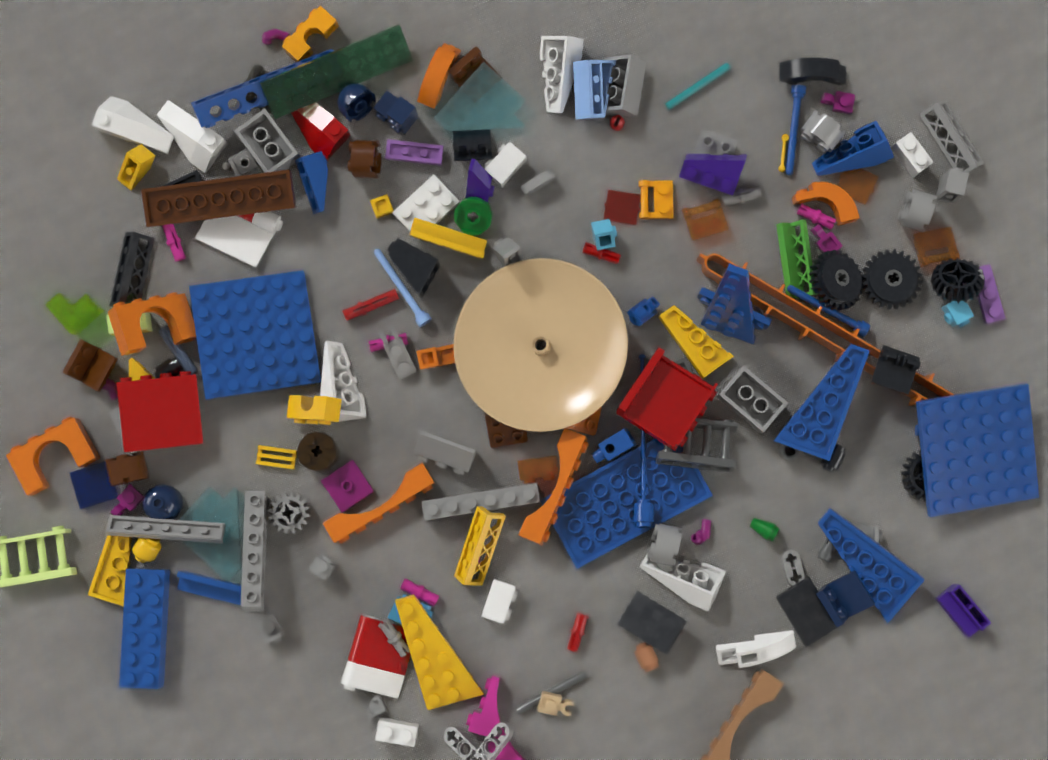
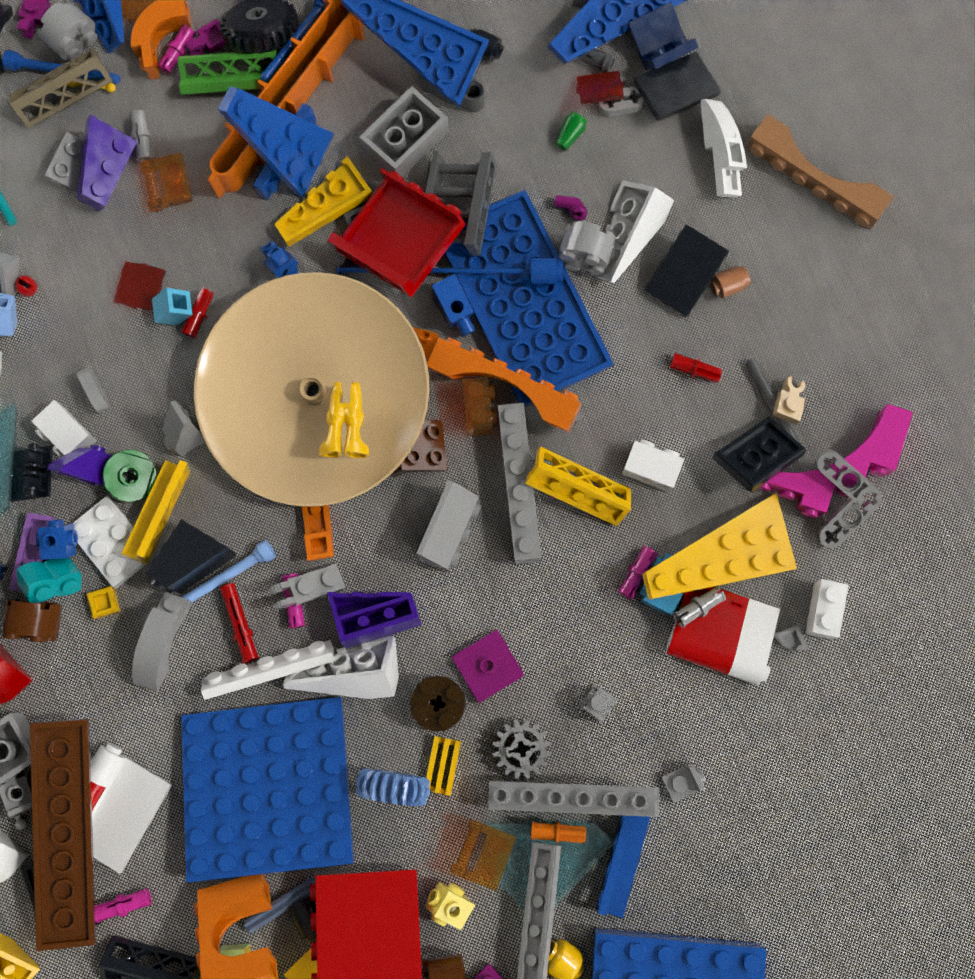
camera: 85 degrees left, 5 degrees down
(162, 502) = (498, 935): dark blue cylinder -> none
(180, 467) = (449, 905): none -> light yellow brick
(212, 495) = (492, 856): none -> clear orange plate
(231, 541) = (558, 832): none -> orange axle
(258, 423) = (392, 787): none -> medium blue gear
(311, 410) = (378, 686): yellow arch -> none
(314, 174) = (49, 694): blue slope -> none
(338, 328) = (267, 669): none -> white plate
(354, 249) = (155, 641): none -> light grey arch
(378, 400) = (372, 615): none -> dark purple wedge
(394, 168) = (45, 580): none -> teal brick
(414, 482) = (487, 572): orange arch -> none
(422, 170) = (57, 540): none -> blue brick
(510, 680) = (759, 454): none -> black tile
(520, 373) = (343, 413): none -> yellow piece
(662, 199) = (134, 234): light orange plate -> none
(779, 127) = (55, 79): none -> dark tan fence
(802, 550) = (600, 87): none -> clear red piece

